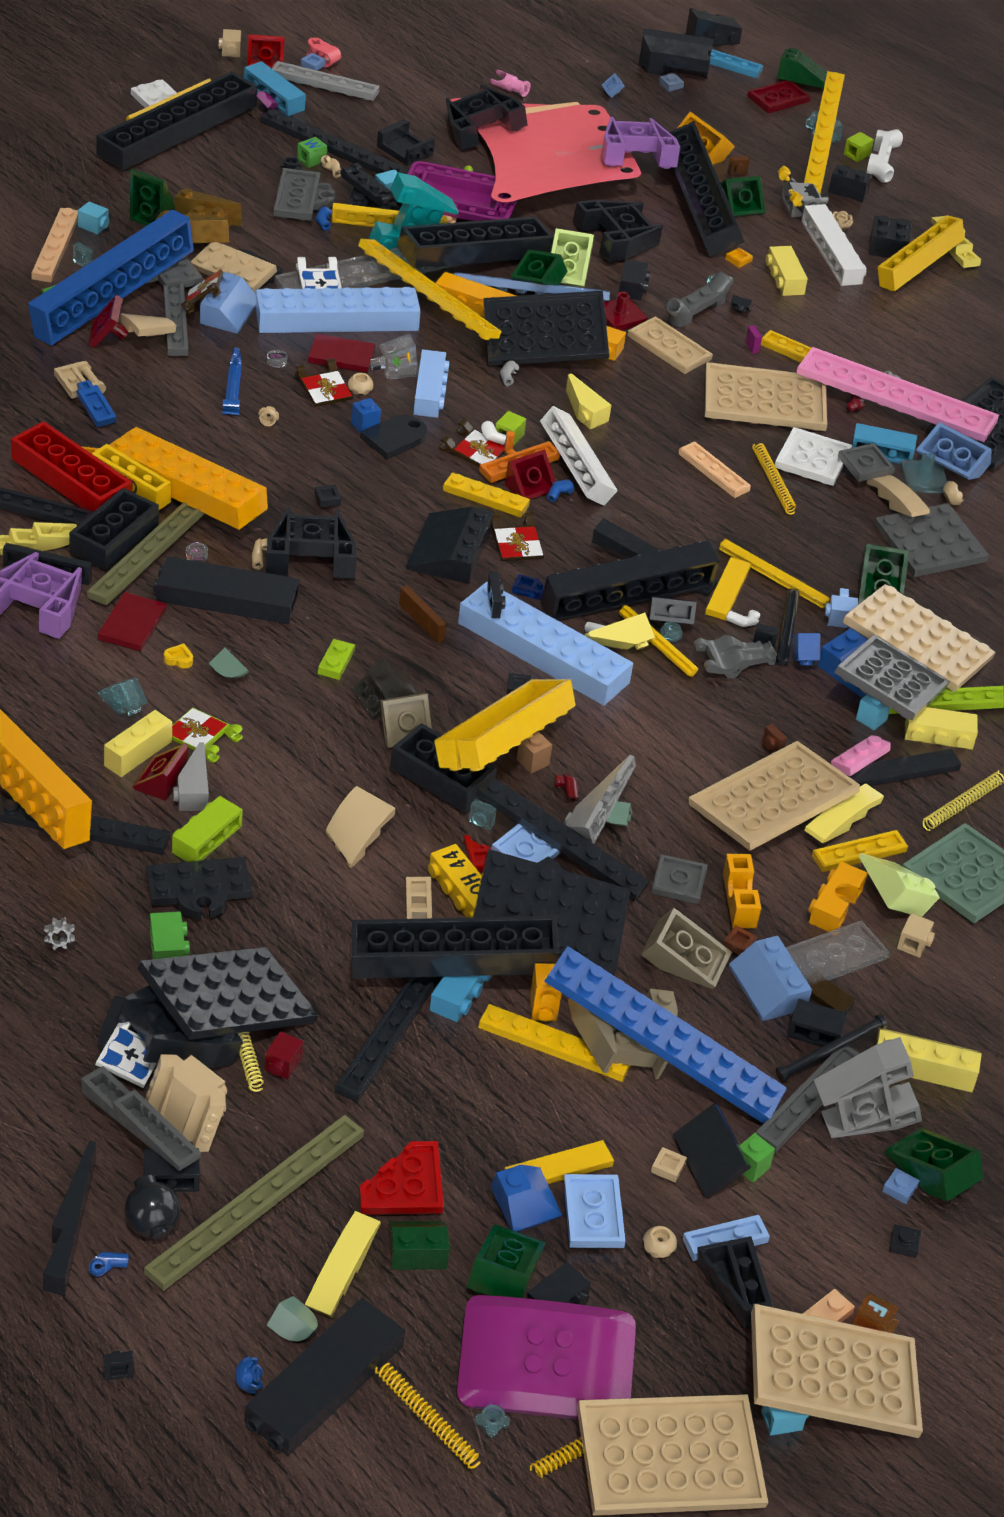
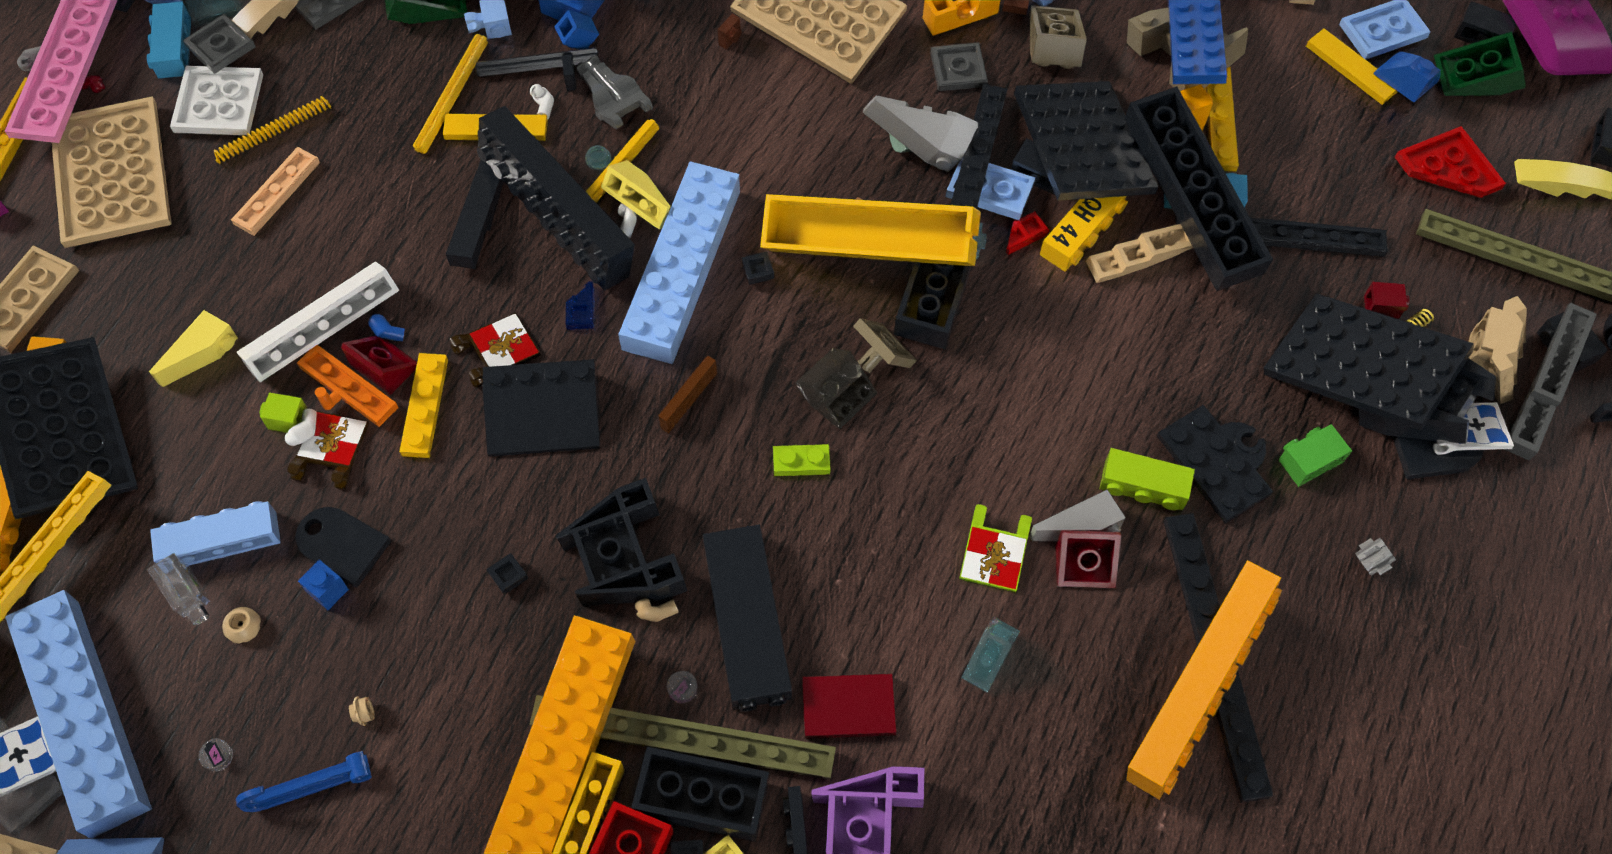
camera: 105 degrees left, 20 degrees up
(137, 743) = (1061, 601): light yellow brick -> none
(179, 656) = (882, 627): yellow tile -> none
(228, 665) = (877, 559): sand green brick -> none
(326, 386) = (259, 669): flag -> none
(347, 353) = (173, 676): dark red tile -> none
(358, 823) = (1057, 341): tan slope -> none
(418, 1245) = (1506, 133): dark green slope -> none
(494, 591) = (659, 304): black plate -> none
(506, 371) = (149, 459): light grey arm -> none
(569, 784) = (881, 187): dark red arm -> none
(672, 610) = (573, 153): brick -> none

